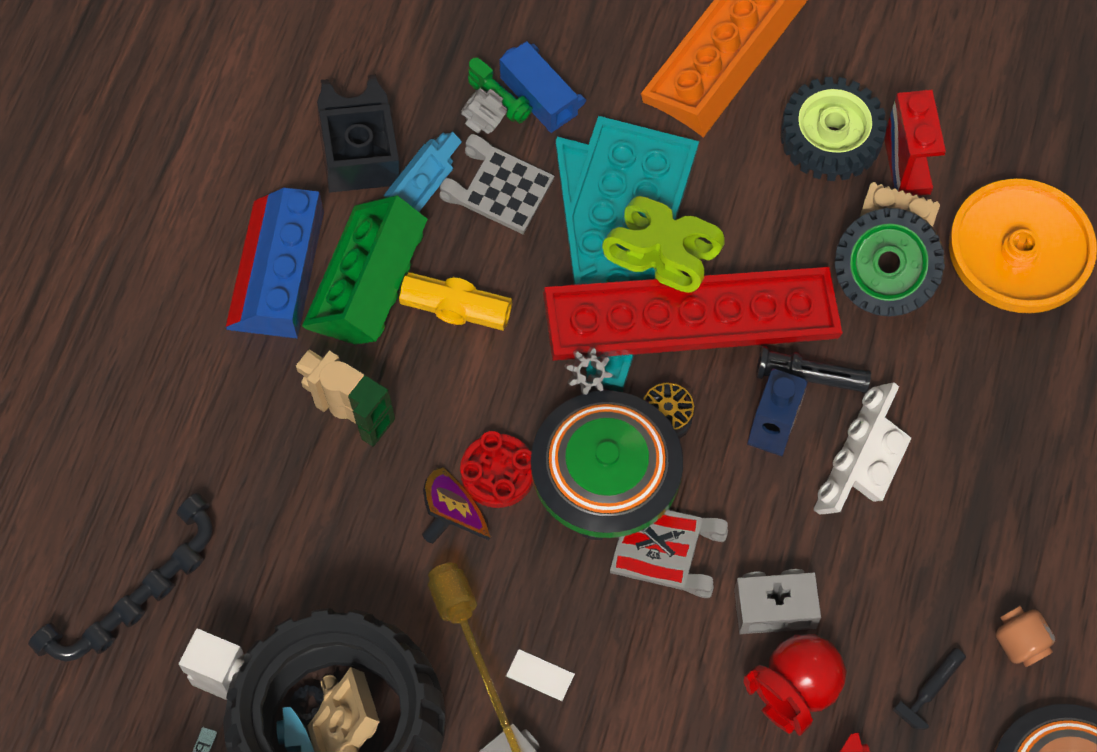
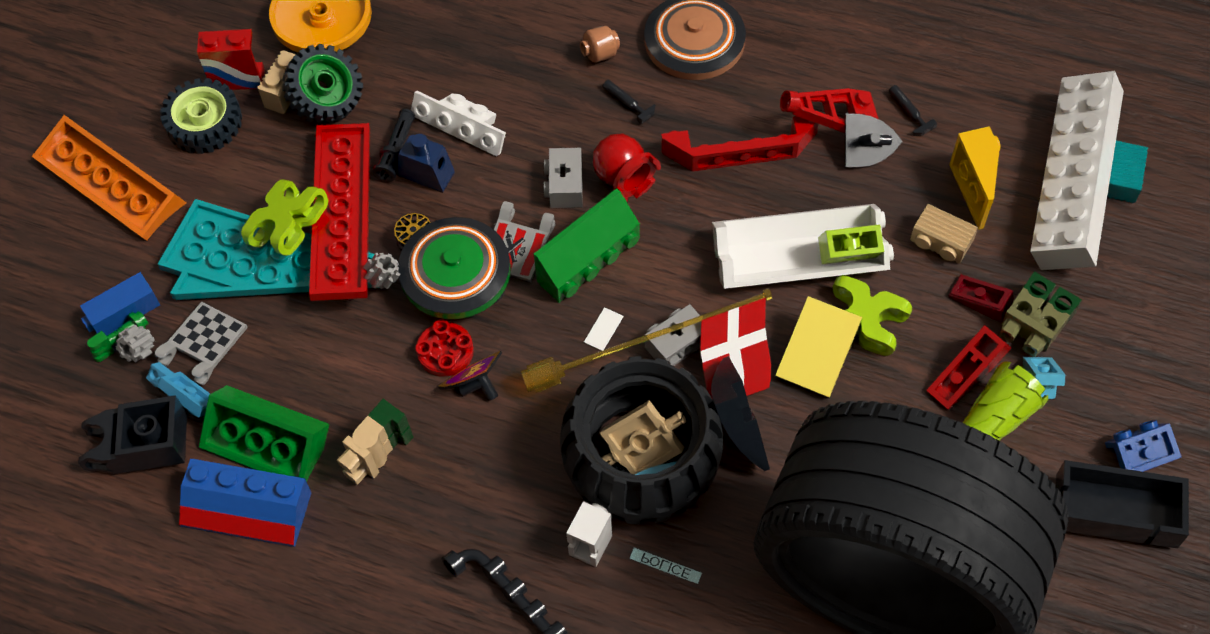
camera: 85 degrees left, 5 degrees down
(455, 301) = (301, 369): yellow piece -> none
(653, 638) = (586, 246): none -> green slope

